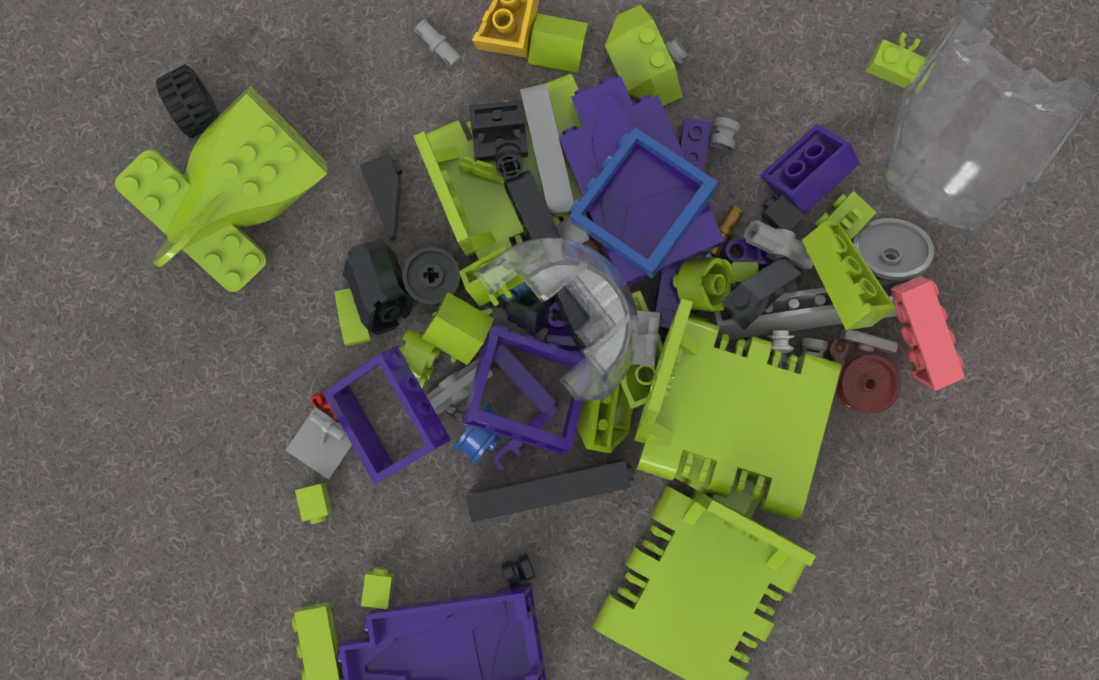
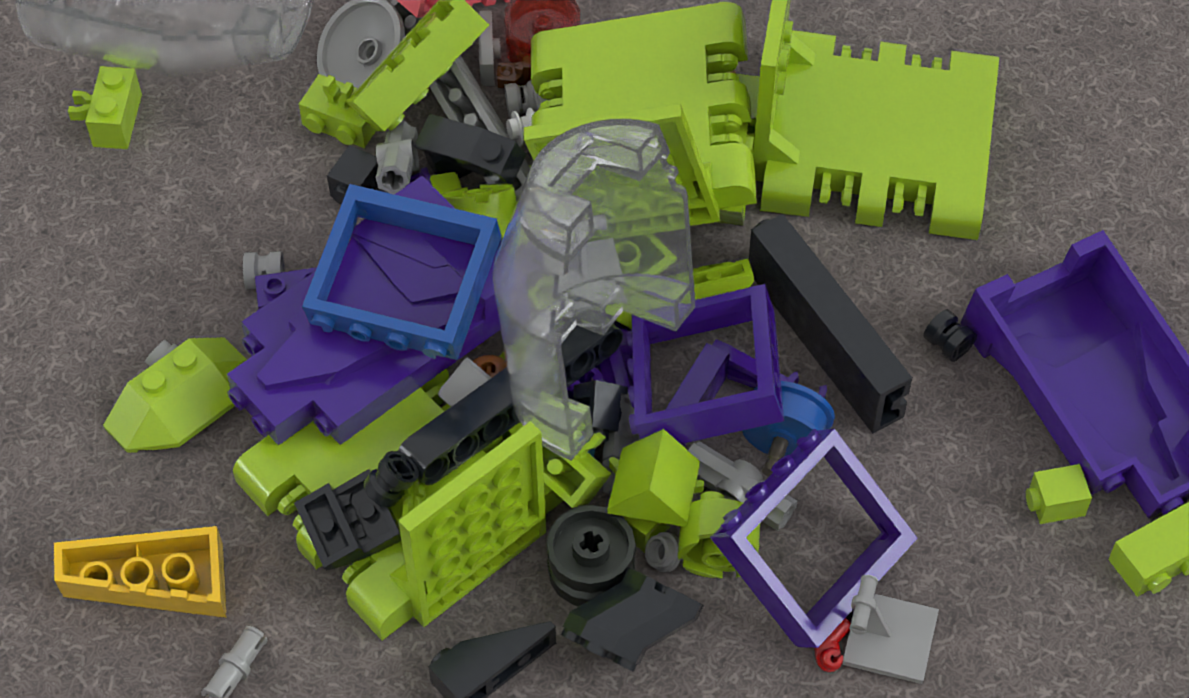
camera: 105 degrees left, 30 degrees down
(314, 503) = (979, 614): lime brick -> none
(350, 323) = (688, 649): lime slope -> none
(547, 148) = (351, 447): light grey beam -> none
(557, 43) = (189, 499): lime slope -> none
(811, 168) = (278, 164): dark purple slope -> none

